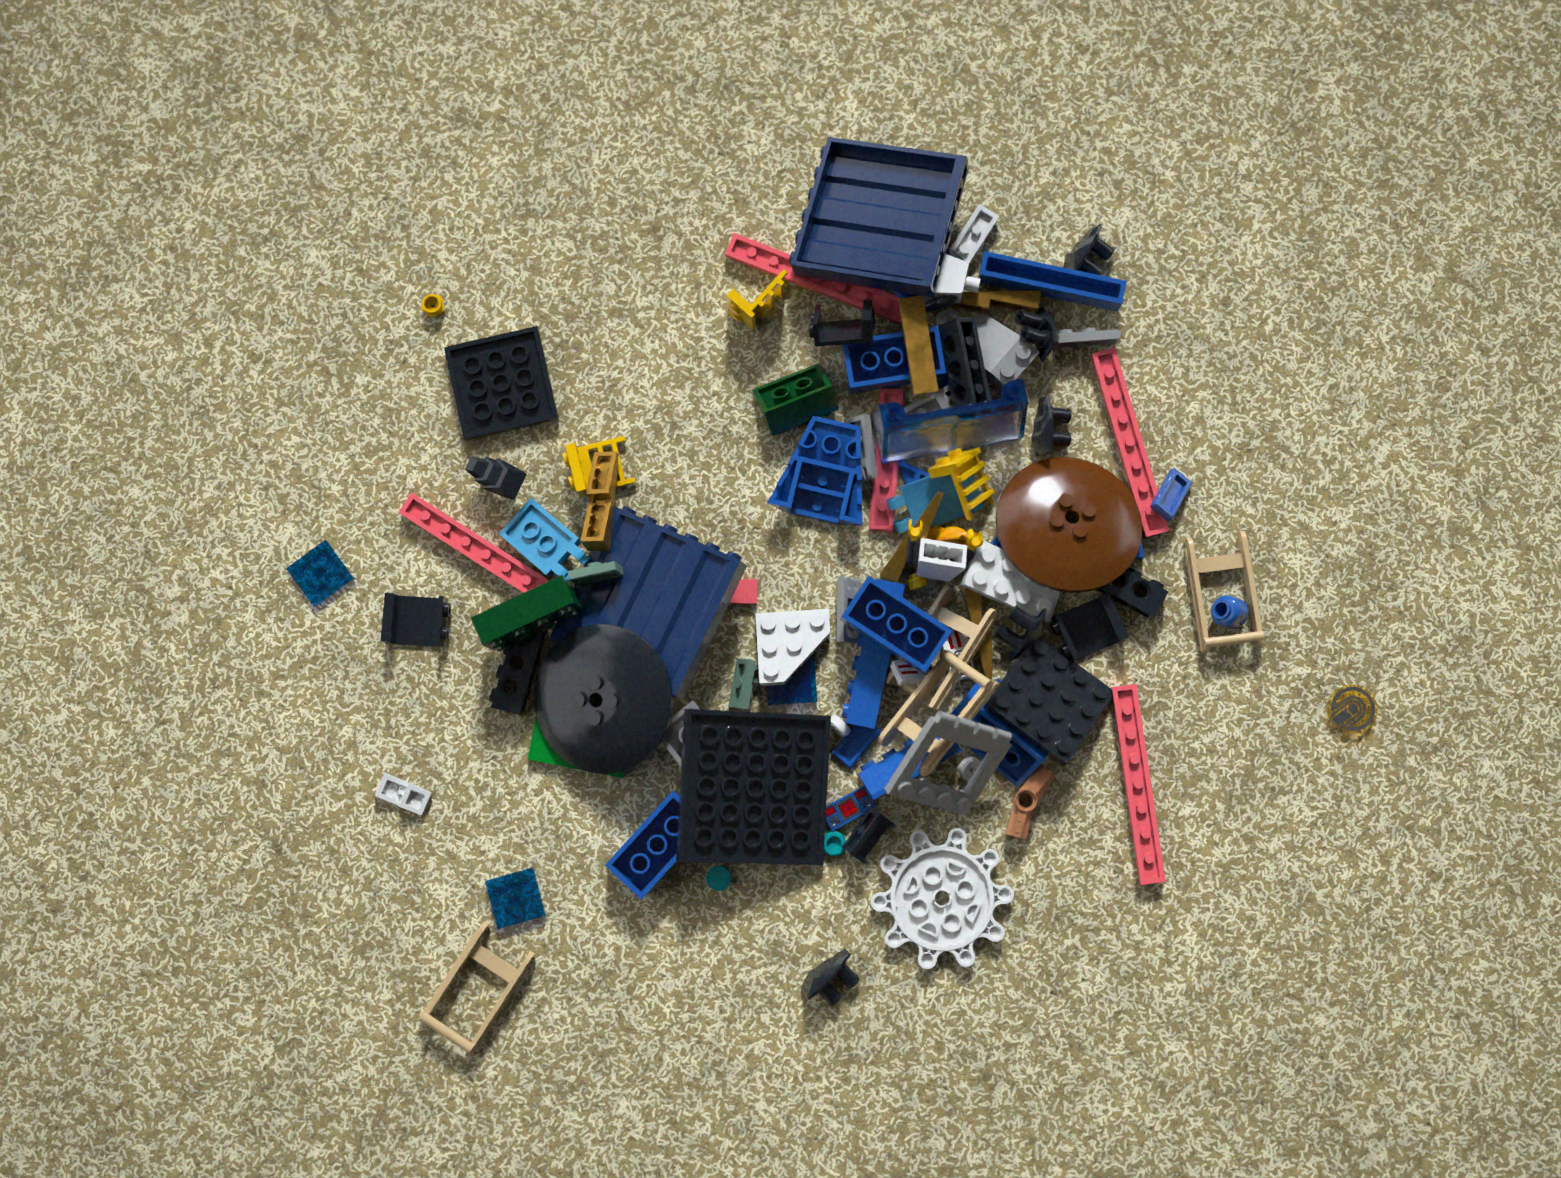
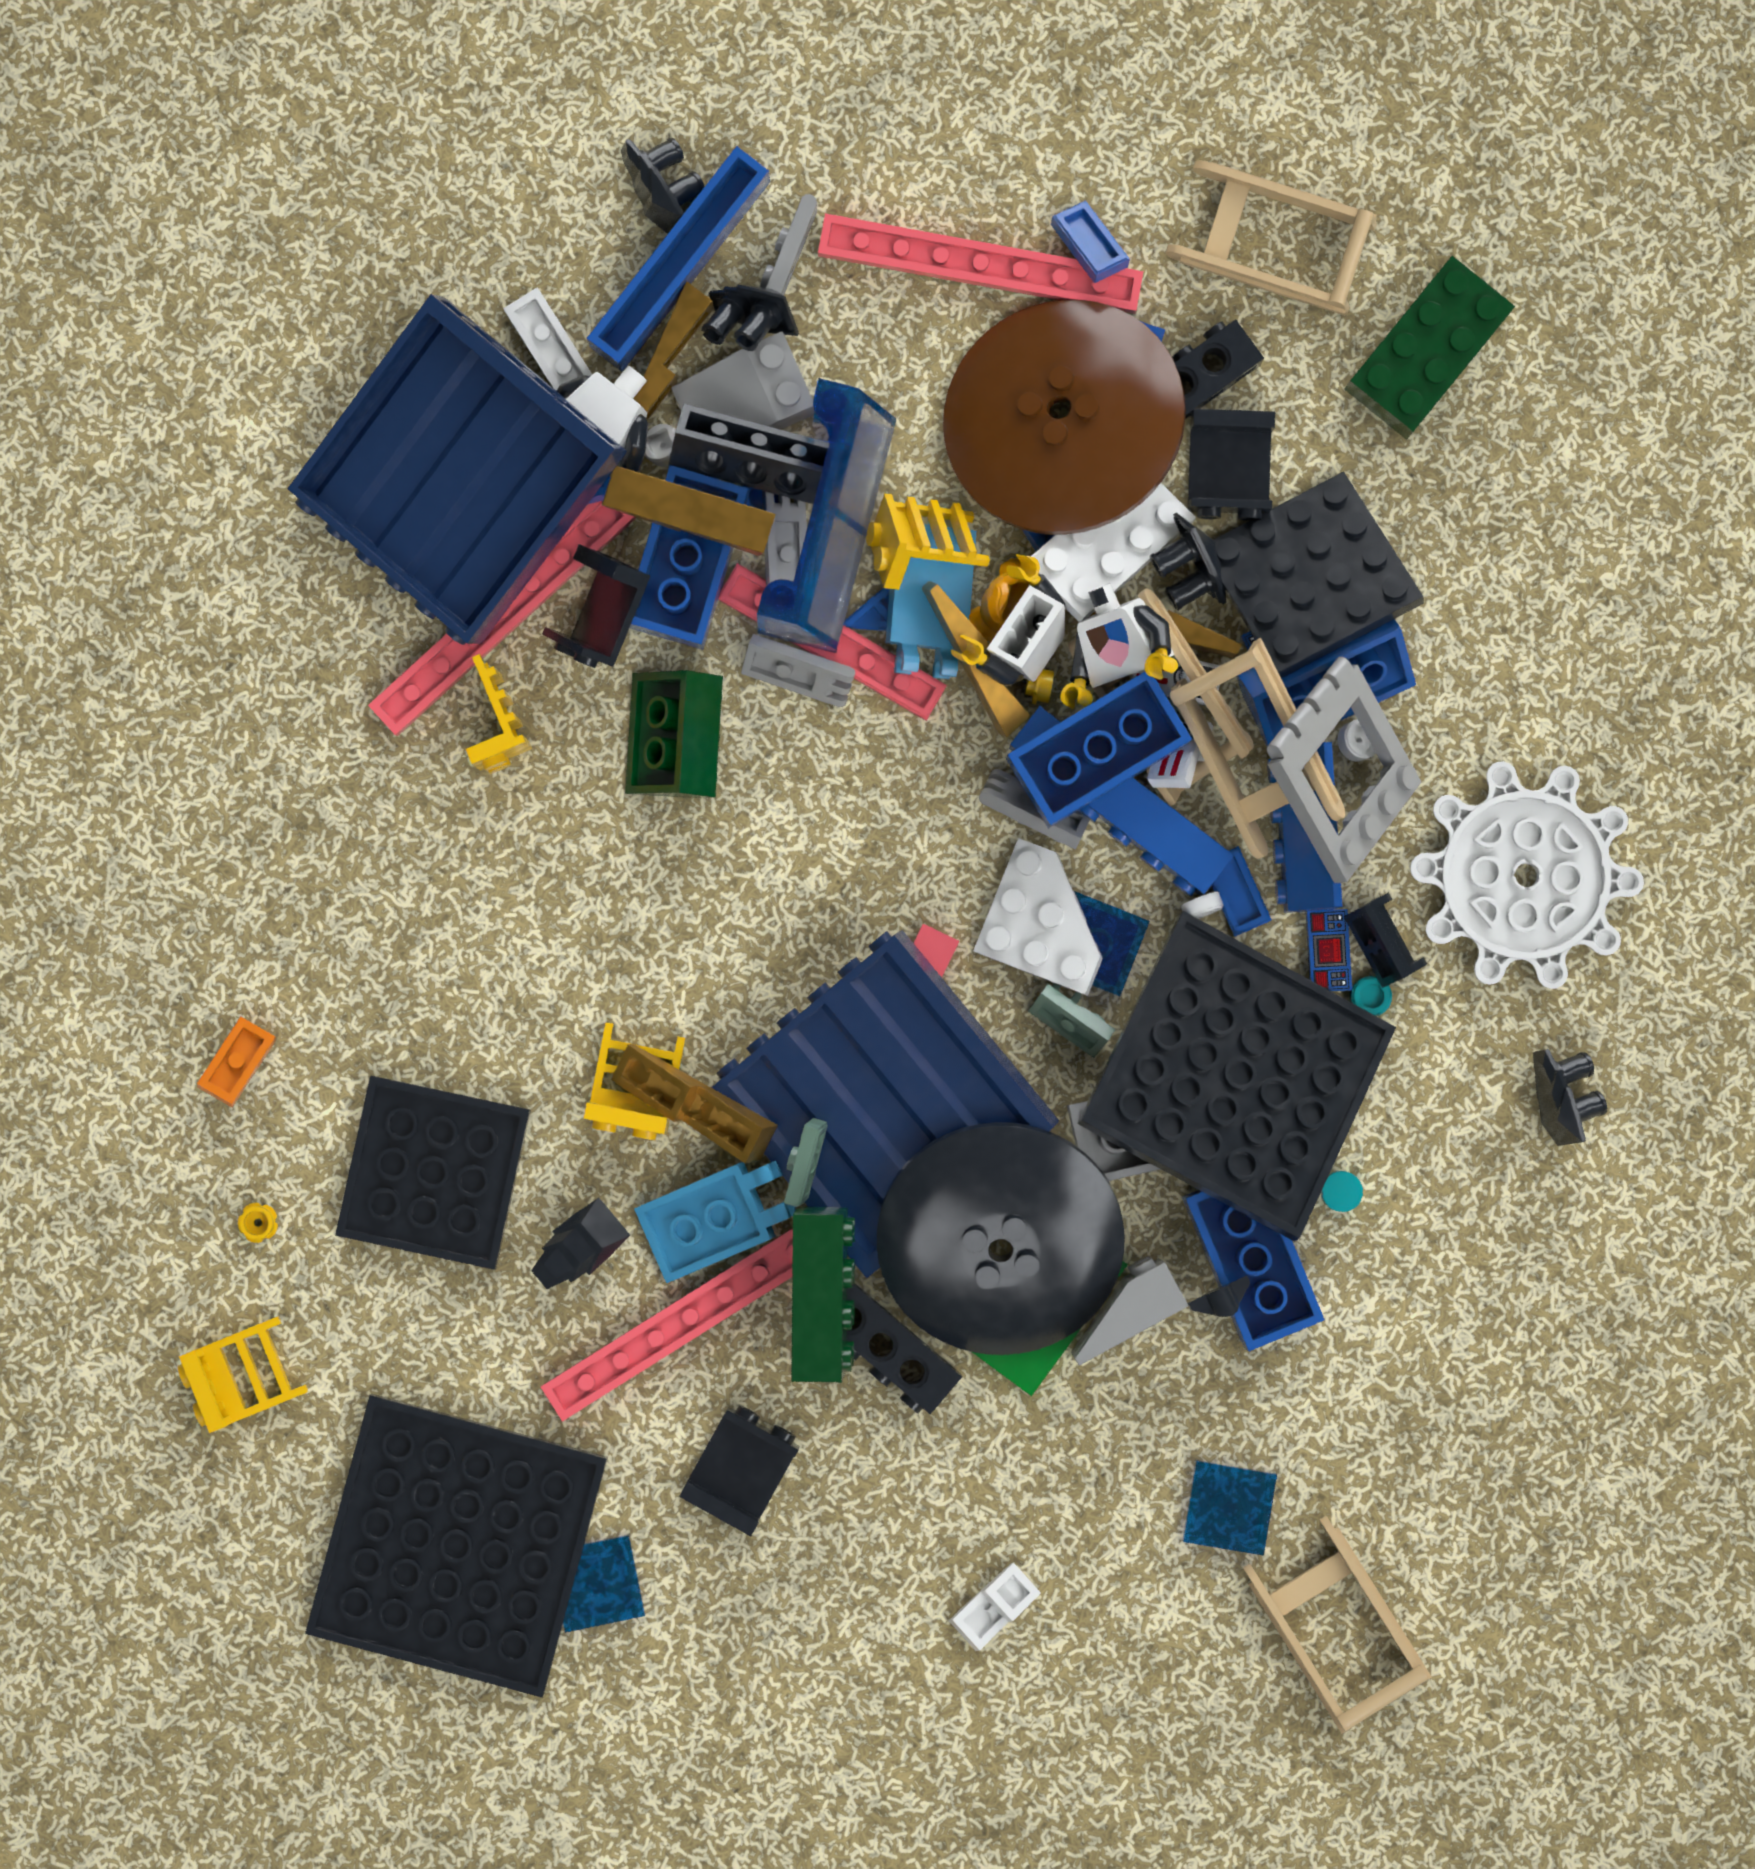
camera: 70 degrees left, 5 degrees up
(307, 489) = (456, 1545): none -> black plate
(335, 322) = (215, 1386): none -> yellow plate
(512, 253) = (236, 1062): none -> orange plate
(606, 793) = (1135, 1305): none -> light grey slope
(625, 836) = (1223, 1300): none -> black piece
(824, 475) = (813, 746): blue wedge -> none
(957, 608) = (1117, 644): none -> torso
(1034, 787) = (1462, 701): nougat piece -> none
(1043, 432) = (907, 386): black connector -> none
(1138, 784) = (1495, 505): coral plate -> none
(1206, 705) = (1429, 347): none -> dark green brick
(1229, 612) = (1307, 243): blue head -> none
(1352, 709) = (1532, 135): tile -> none

